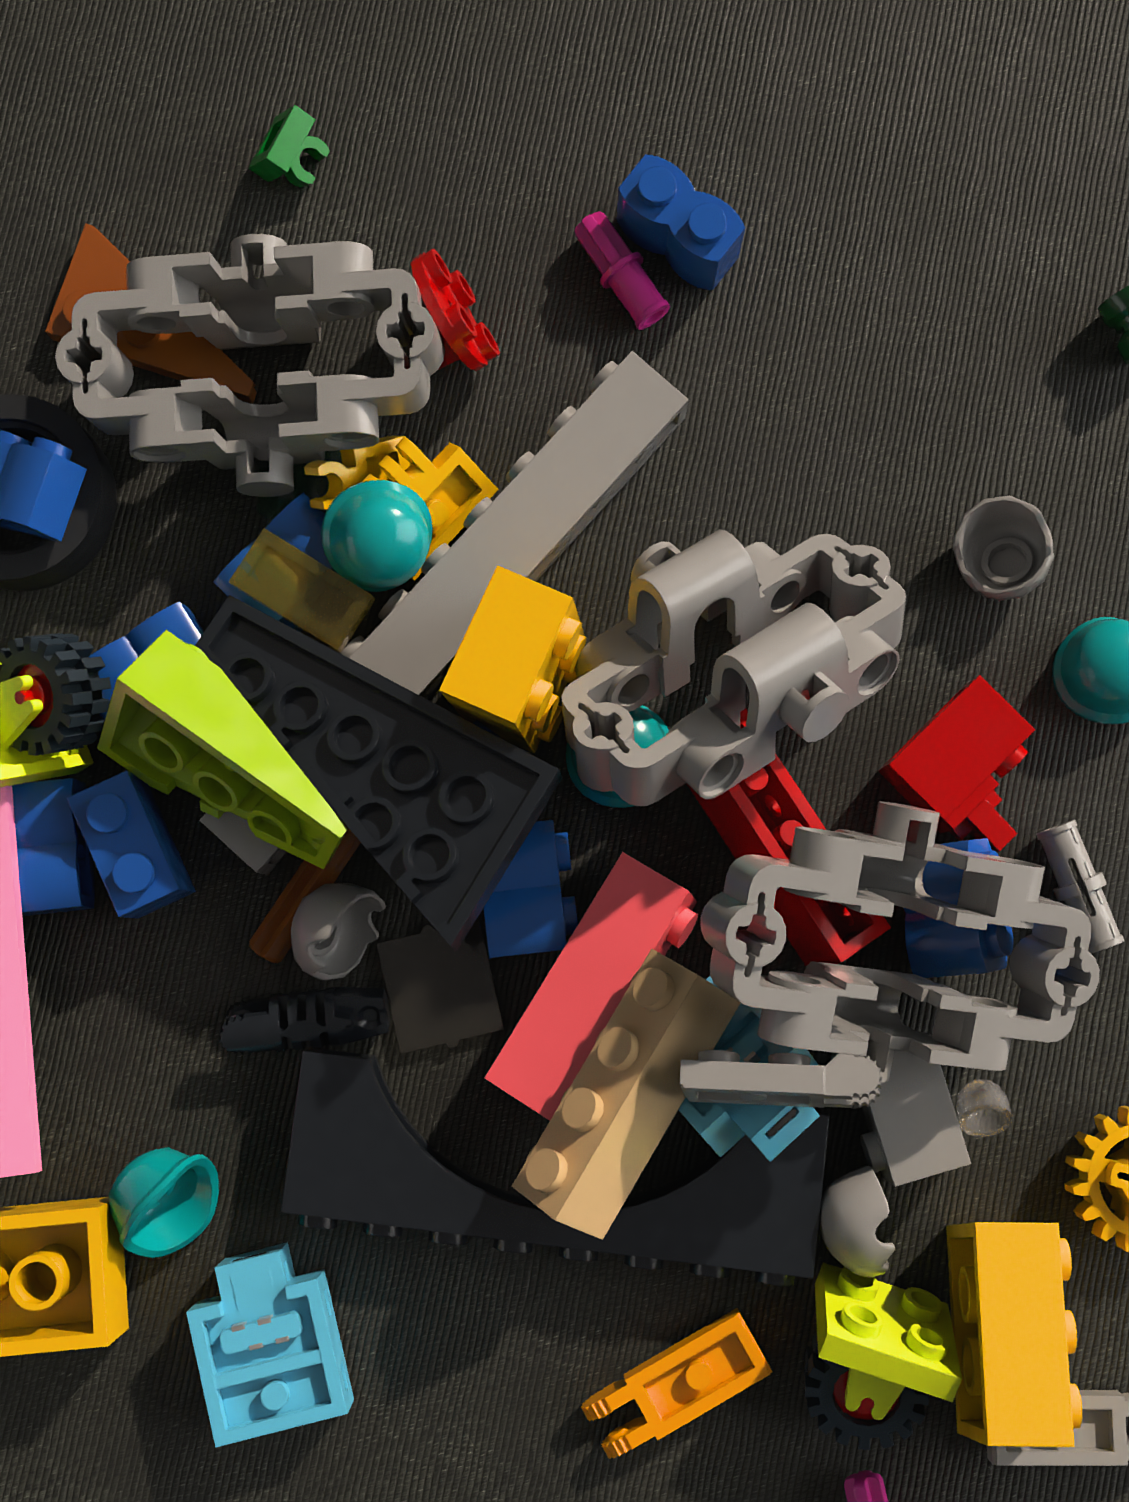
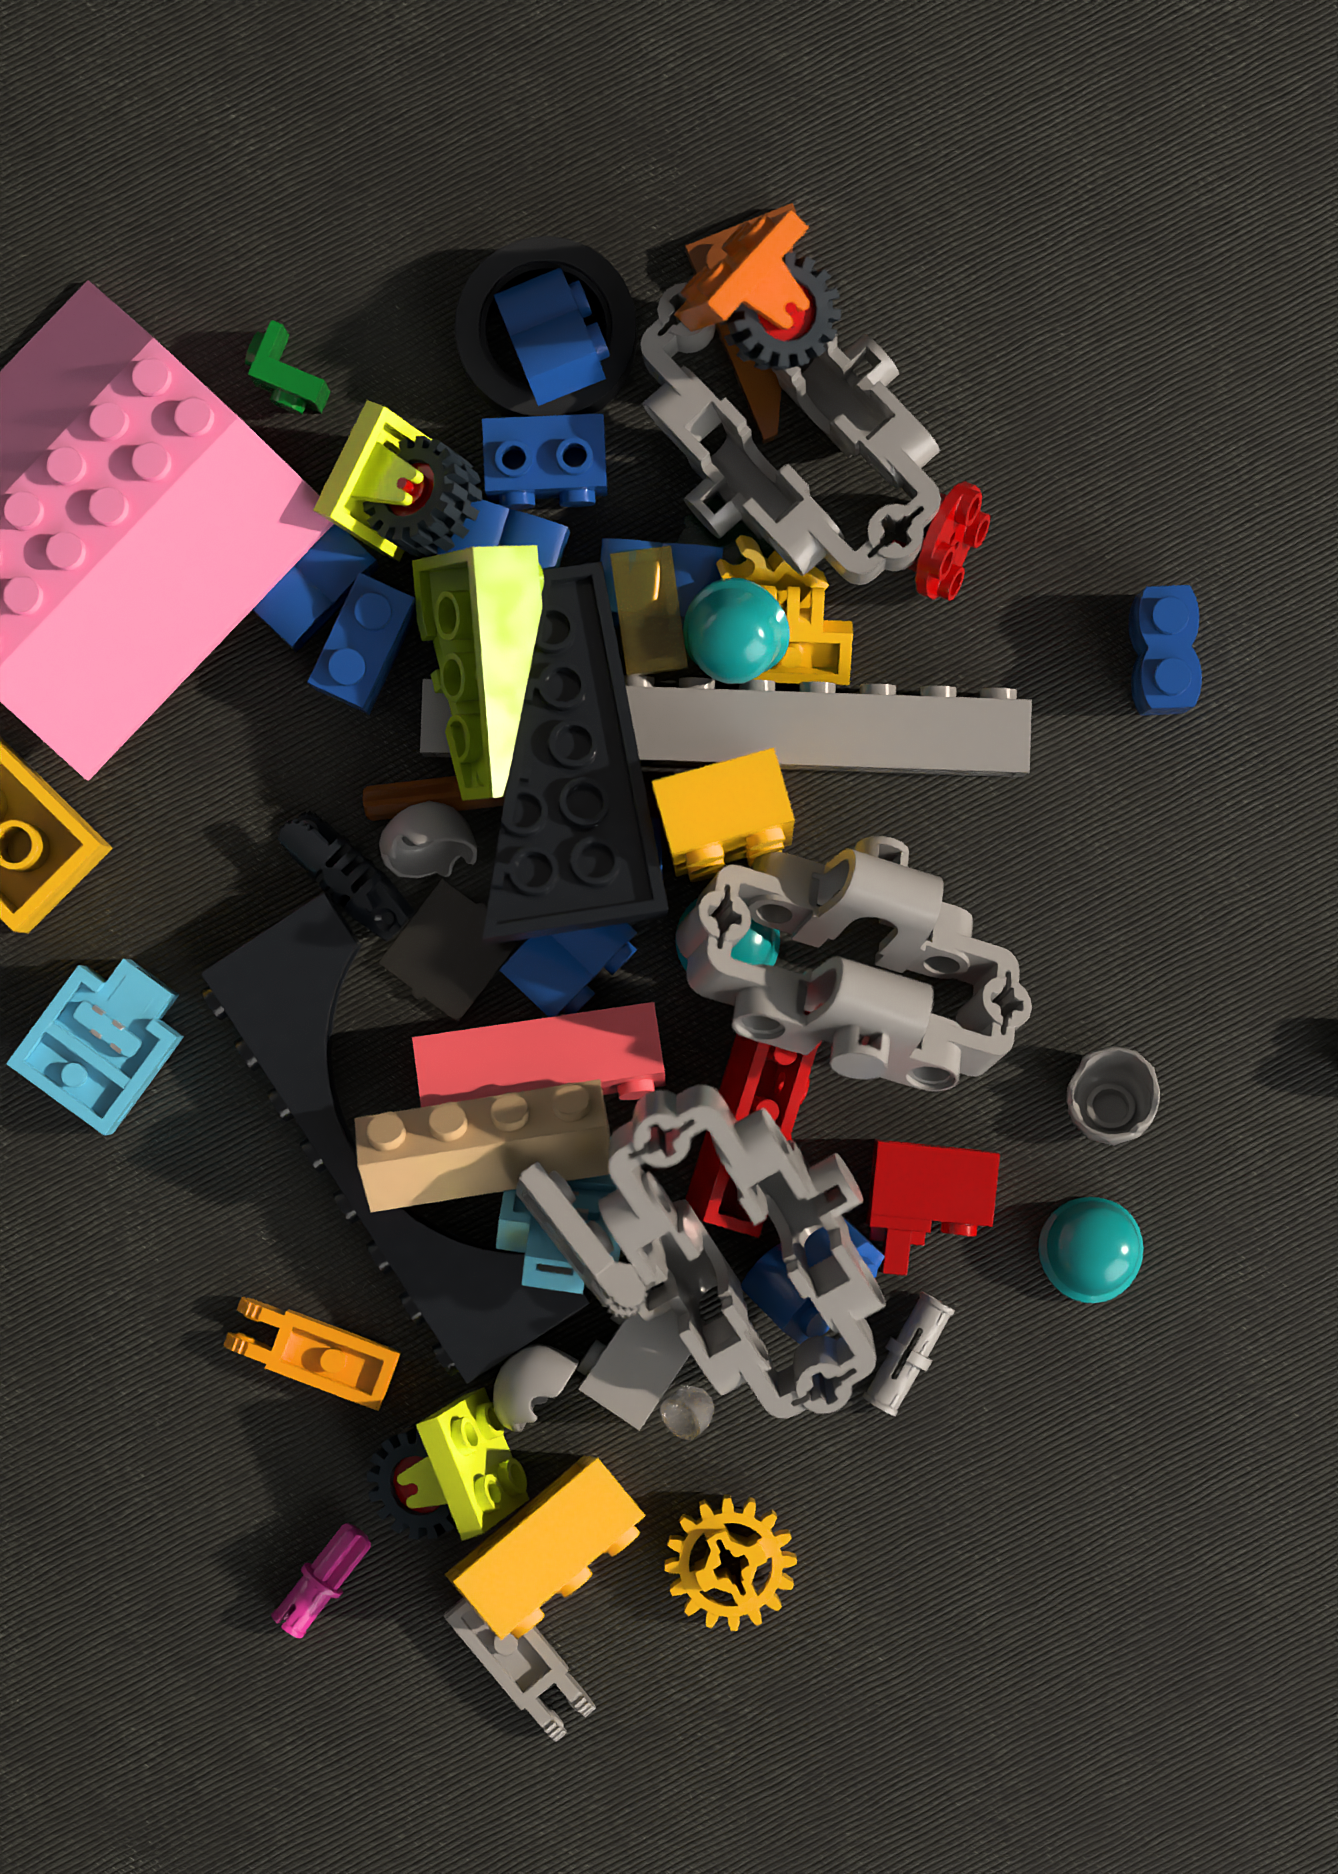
camera: 50 degrees right, 5 degrees up
(112, 575) = (545, 460): none -> blue brick
(122, 270) = (766, 296): none -> plate
(163, 1201) = (137, 883): teal helmet -> none
(283, 145) = (975, 300): green tile -> none
(621, 270) = (1095, 634): dark pink axle -> none

